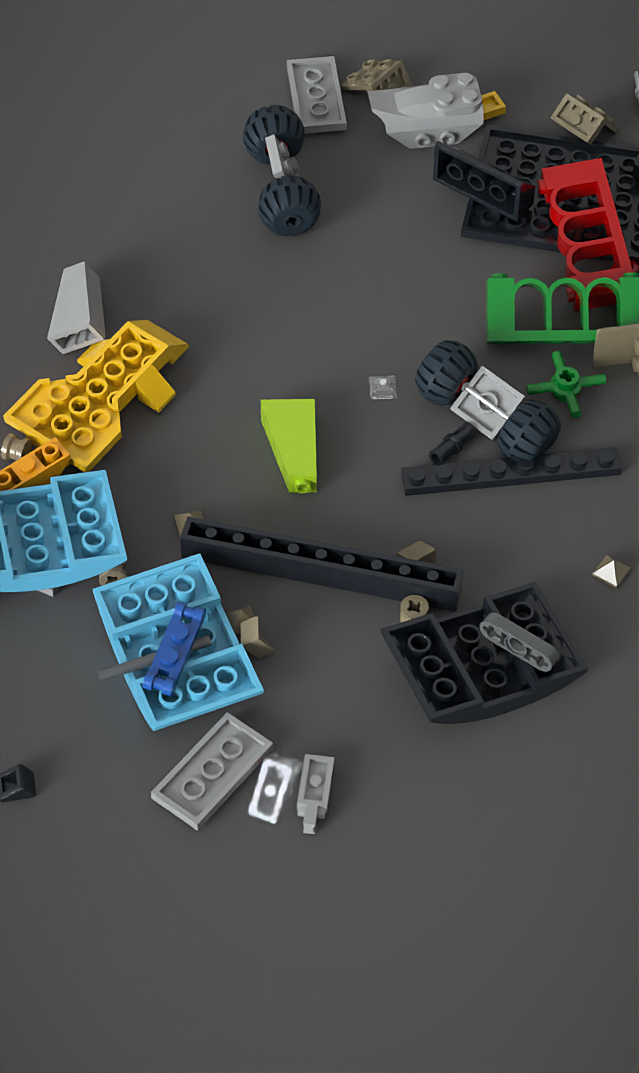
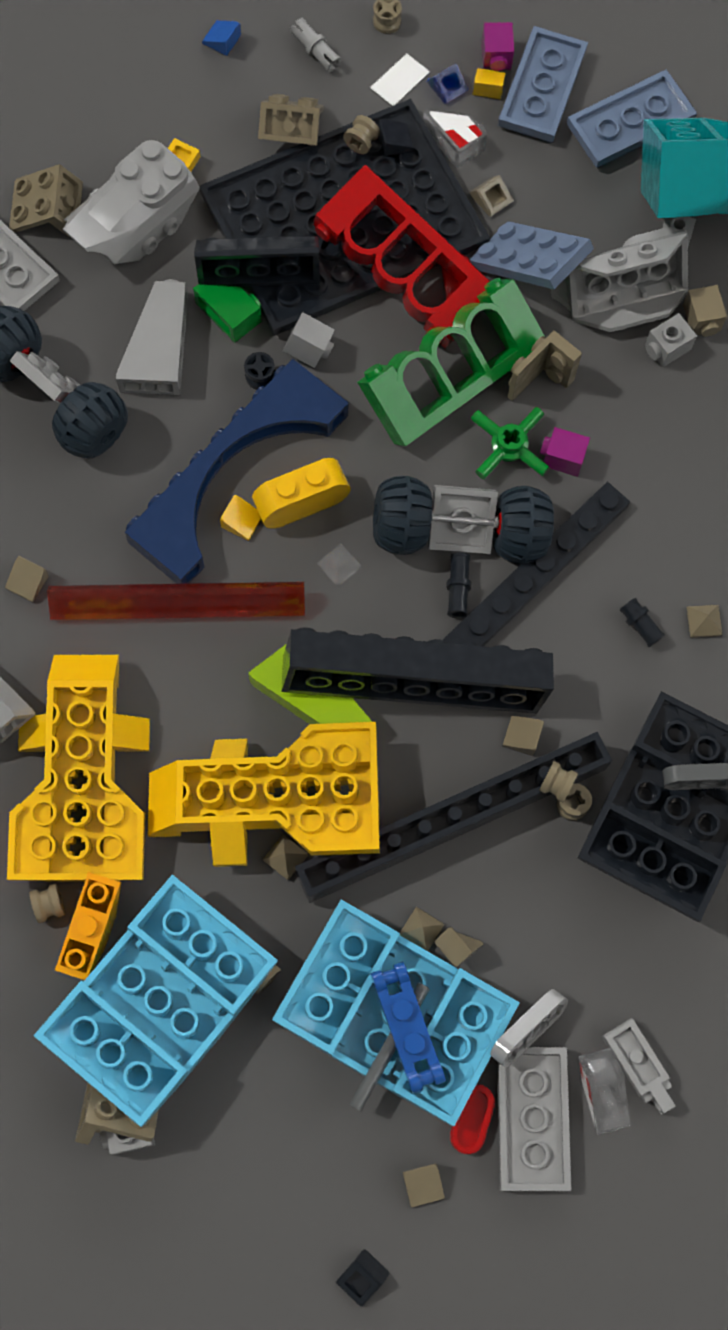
camera: 40 degrees left, 20 degrees up
(104, 757) = (423, 1185): none -> dark tan slope
(171, 274) = (26, 579): none -> dark tan slope
(171, 746) = (472, 1125): none -> red tile
(234, 485) = (234, 794): none -> yellow piece
(247, 703) = (529, 1027): none -> light grey beam
(256, 340) = (176, 600): none -> clear red plate
(340, 320) = (240, 518): none -> yellow slope
(370, 458) = (416, 671): none -> black brick
(377, 195) = (157, 345): none -> light grey slope
(391, 326) = (301, 493): none -> yellow brick
(405, 572) = (558, 781): none -> dark tan wheel
(430, 248) = (259, 363): none -> black wheel
(430, 276) = (288, 404): none -> dark blue arch
(443, 203) = (229, 308): none -> green slope
(478, 247) = (309, 340): none -> light grey brick
(563, 540) = (641, 621): none -> black pin
(584, 56) = (223, 36): none -> blue slope
(601, 412) = (565, 451): none -> magenta brick
(623, 151) = (361, 134): none -> dark tan wheel

